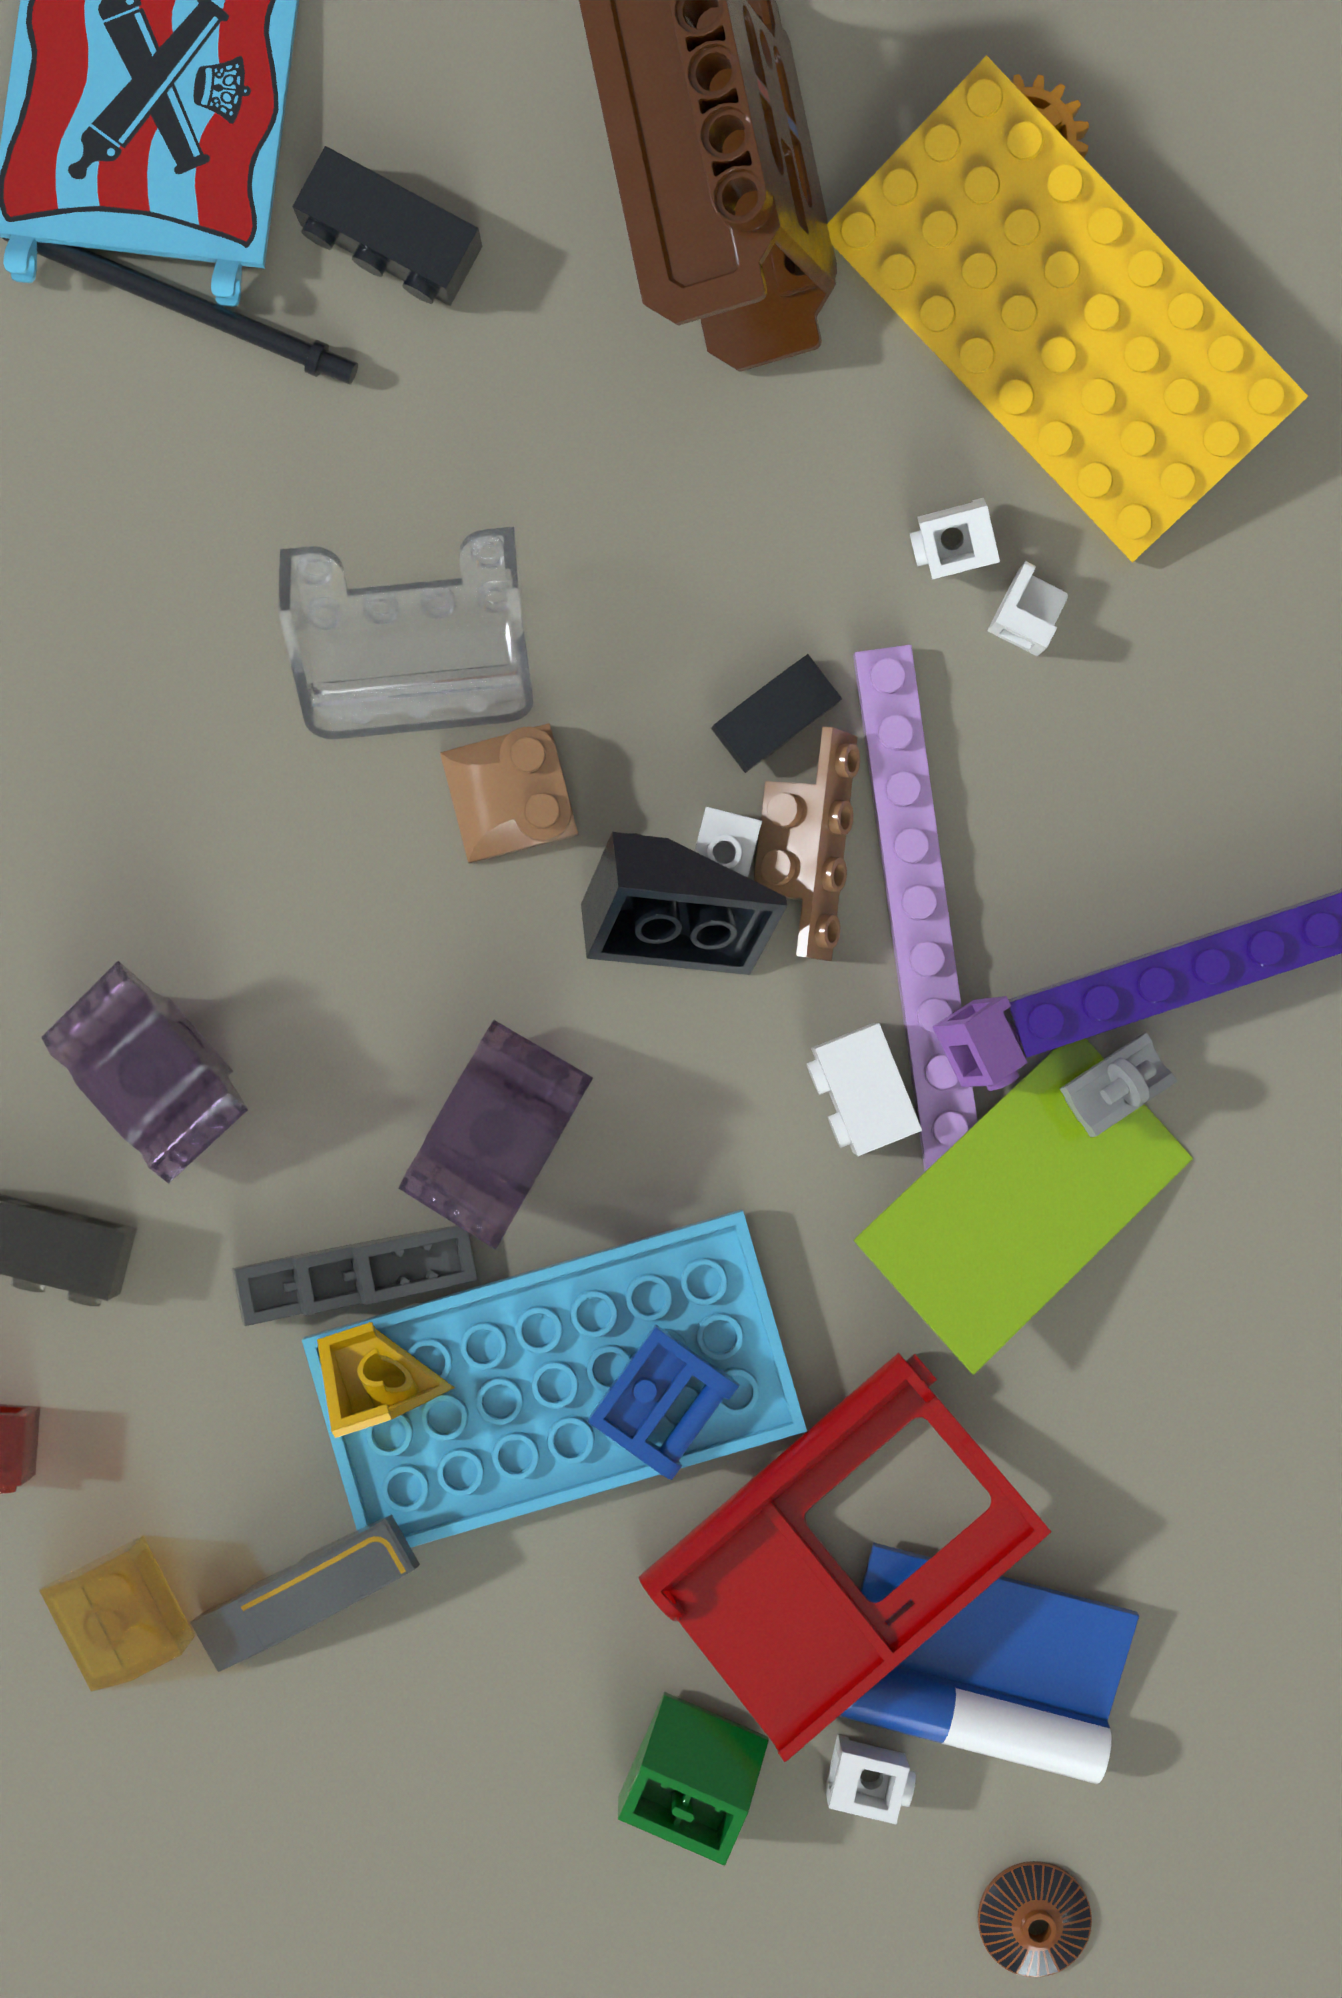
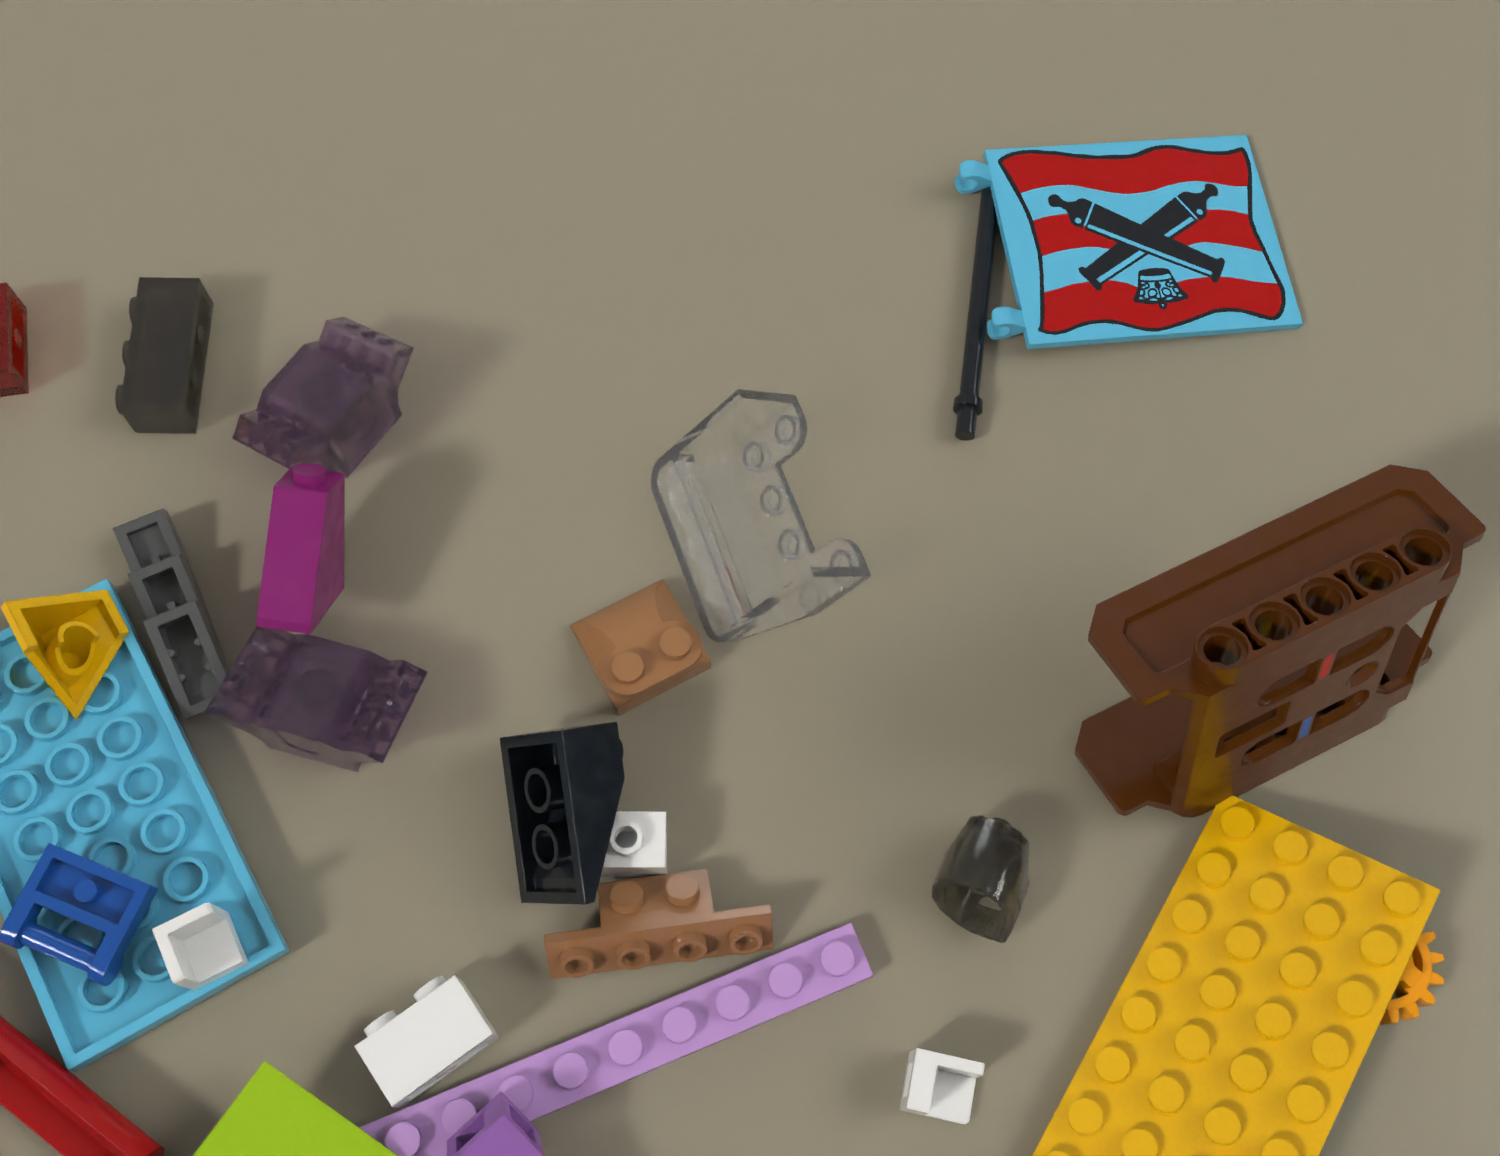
camera: 70 degrees right, 20 degrees down
(334, 1122) = (303, 549): none -> magenta slope
(386, 227) = (1092, 432): black brick -> none
(729, 1286) = (200, 946): none -> white panel
(776, 713) = (773, 863): black slope -> none
(847, 504) = (984, 861): none -> clear smoke helmet
(974, 550) = (963, 981): white brick -> none

